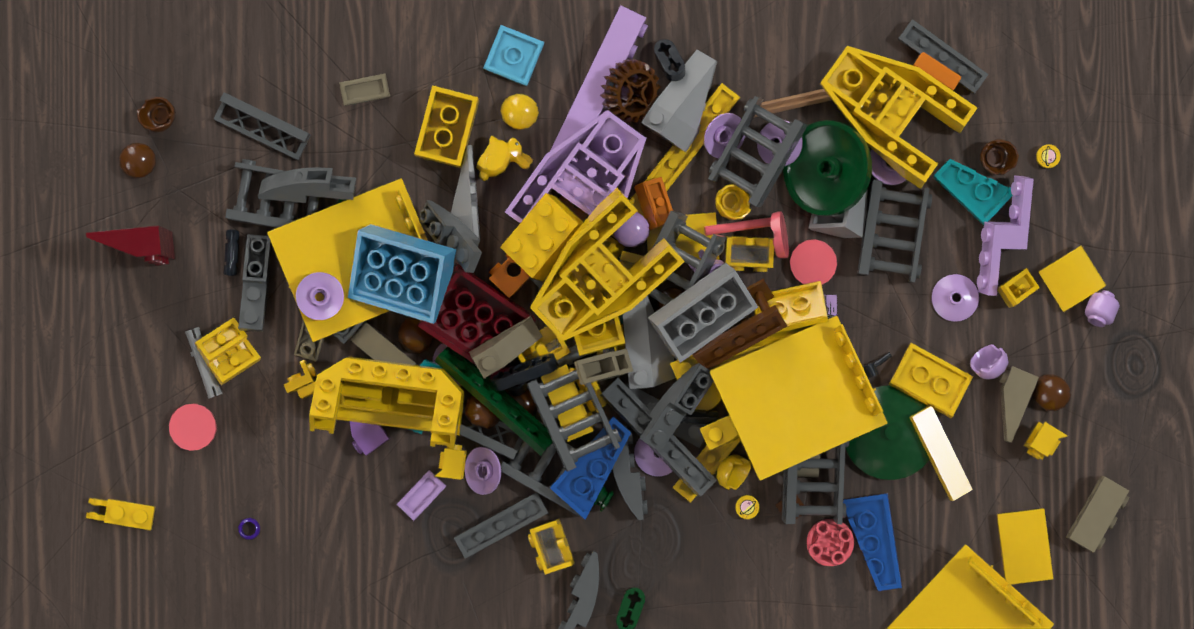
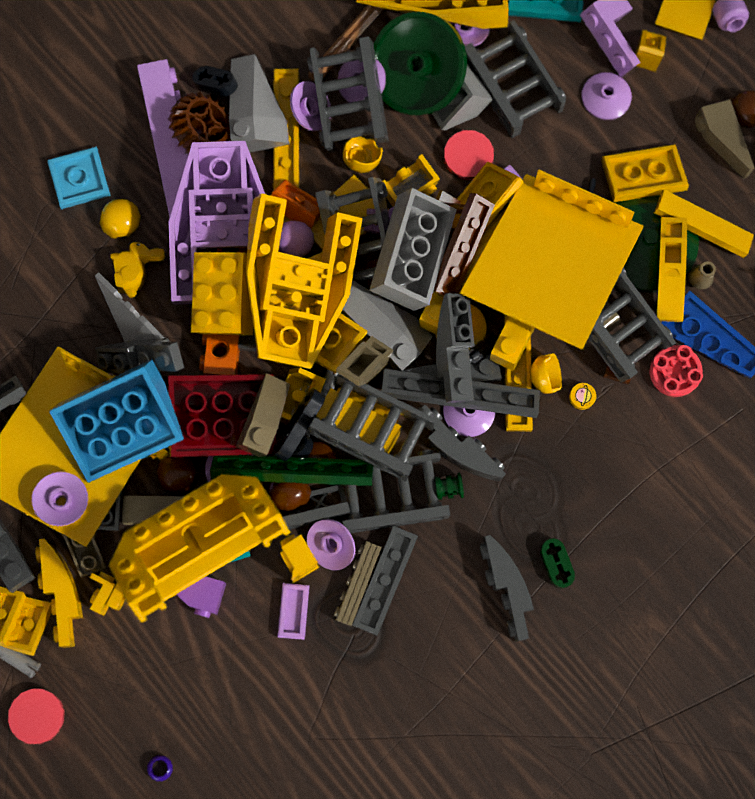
camera: 45 degrees left, 10 degrees down
(277, 346) = (58, 581): none -> yellow slope
(446, 126) = (64, 274): yellow brick -> none
(480, 511) = (357, 583): none -> dark tan piece
(551, 547) = (444, 563): yellow window -> none
(583, 484) = (428, 483): blue wing -> none
(737, 226) = (388, 165): coral bar -> none
(780, 238) = (422, 147): coral tile -> none
(884, 469) = (672, 269): none -> yellow slope
(900, 489) = (702, 275): none -> dark tan cone
(989, 362) = (680, 121): lavender hair -> none

